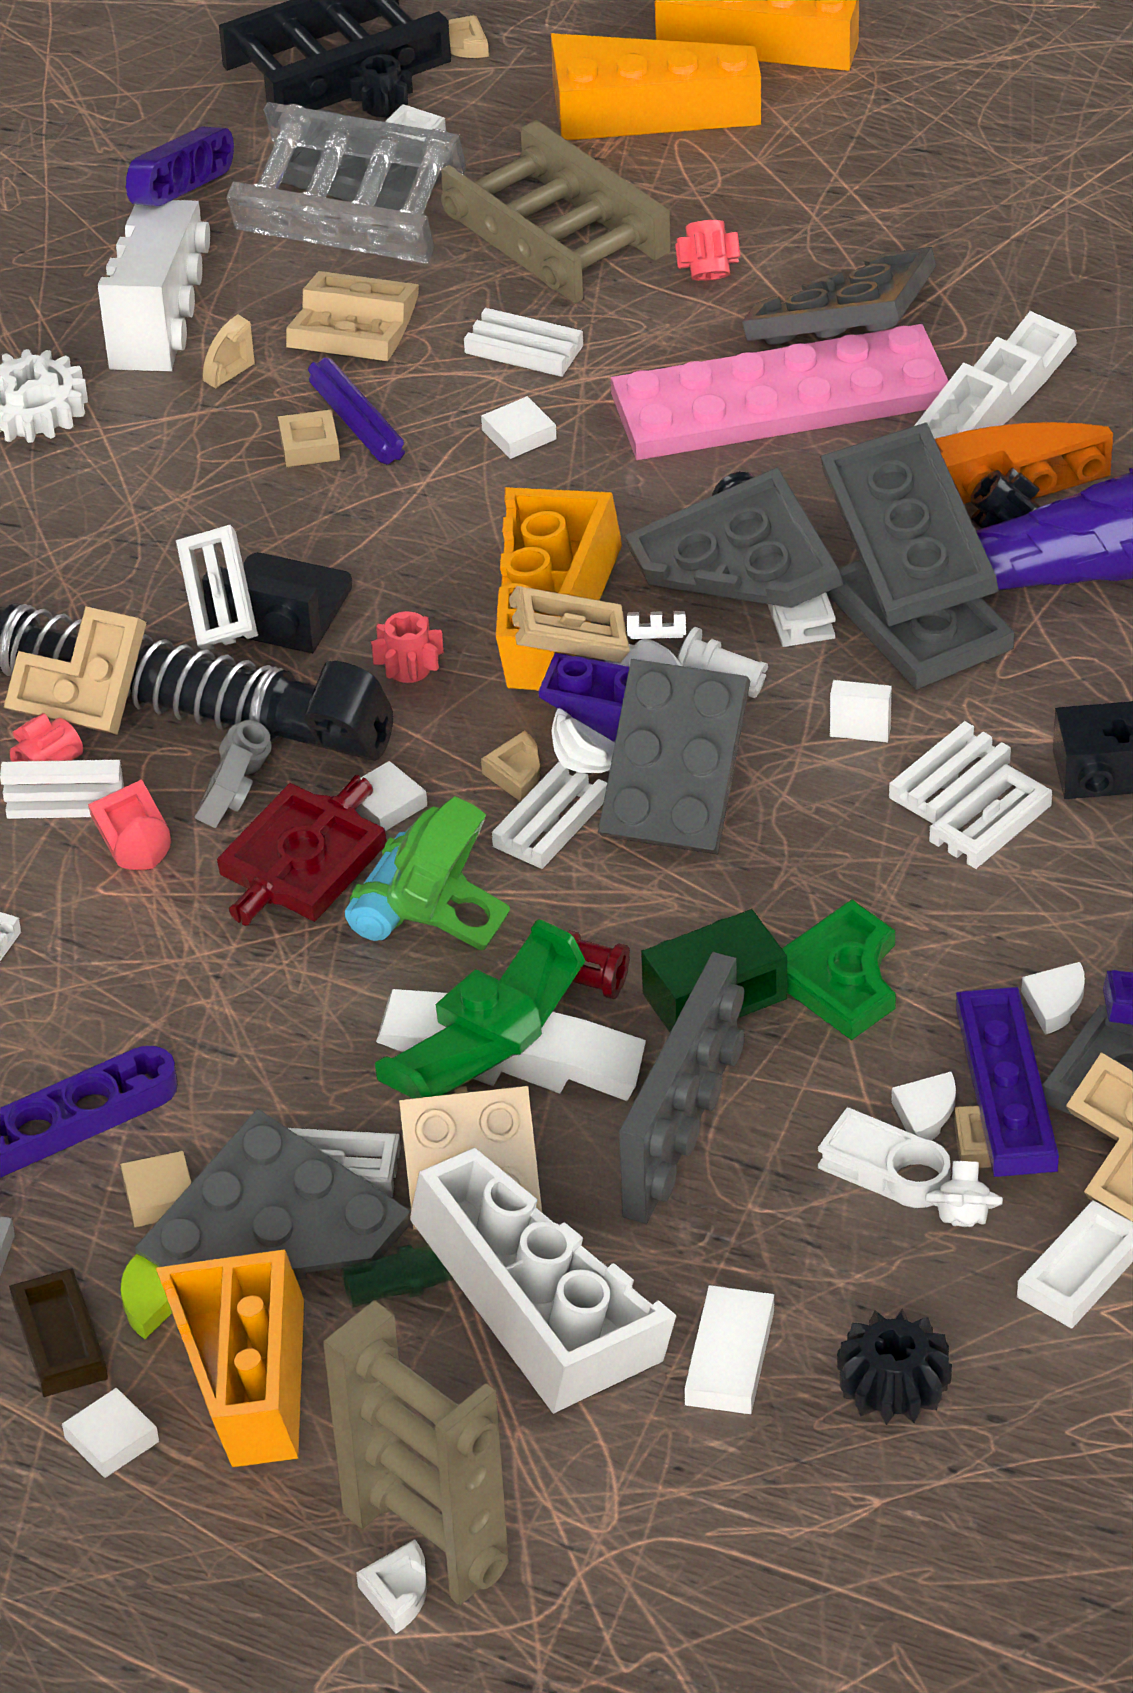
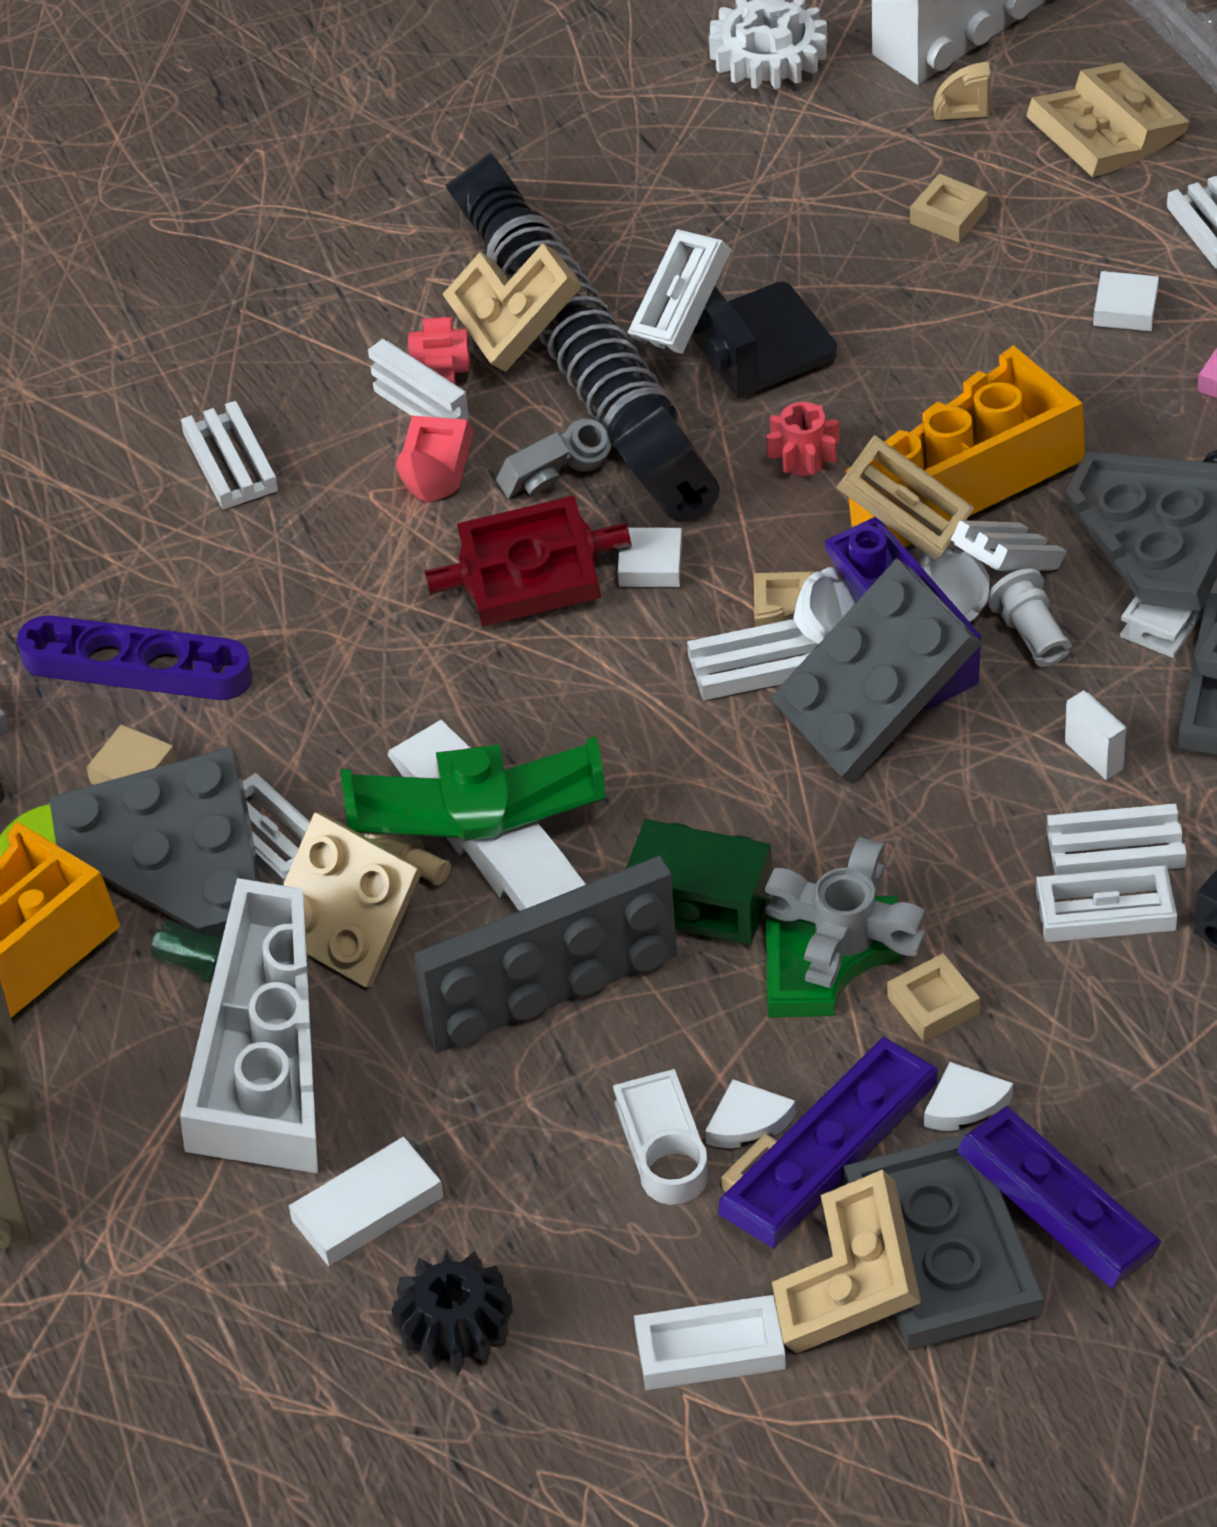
camera: 45 degrees right, 5 degrees up
(356, 411) = (1011, 206): dark purple axle -> none
(422, 875) = (575, 639): bright green piece -> none
(613, 964) = (628, 803): dark red bush -> none
(849, 922) = (845, 912): none -> light grey pin
(953, 949) = (933, 997): none -> tan tile
(964, 1198) = (671, 1214): white plant -> none

